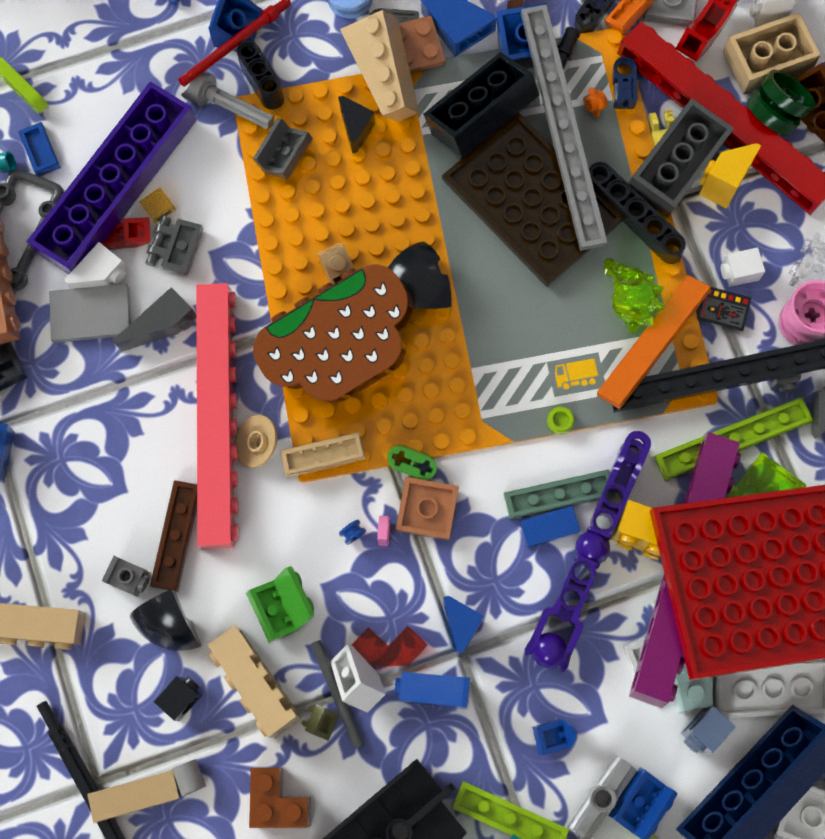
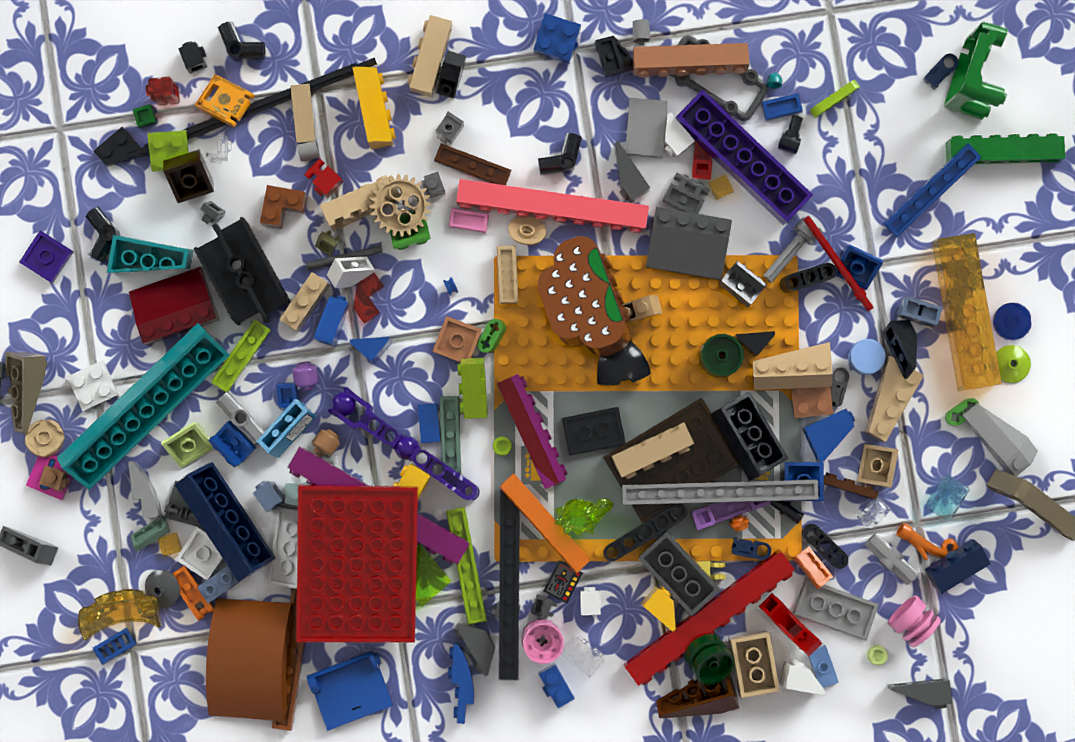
camera: 90 degrees right, 10 degrees up
(48, 588) = (451, 74): none -> black slope
(82, 130) = (790, 139): none -> black pin
(110, 691) = (373, 107): none -> yellow slope
(136, 405) = (570, 151): none -> black piece
(165, 624) = (411, 150): black brick -> none
(178, 697) = (361, 151): black brick -> none
(212, 583) = (433, 184): none -> flat silver brick
(225, 614) = (407, 189): none -> tan gear
(229, 741) = (326, 180): none -> red brick
(239, 227) = (688, 243): none -> dark grey slope
(254, 526) = (468, 220): none -> bright pink tile
(382, 157) = (713, 364): none -> dark green wheel
(383, 531) = (448, 308): bright pink tile -> none
(413, 736) = (305, 302): none -> tan brick
(489, 470) = (473, 388): none -> lime wedge
(514, 305) = (593, 431): none -> black tile
(519, 715) = (305, 375): none -> medium lavender head
(526, 214) = (652, 450): none -> tan wedge
(532, 382) = (531, 431): none -> brick
(594, 139) = (722, 511): none -> medium lavender slope
(603, 726) = (286, 428): none -> dark azure brick
(611, 666) = (325, 443): none -> medium nougat head
(764, 326) = (542, 606): none -> dark grey tile

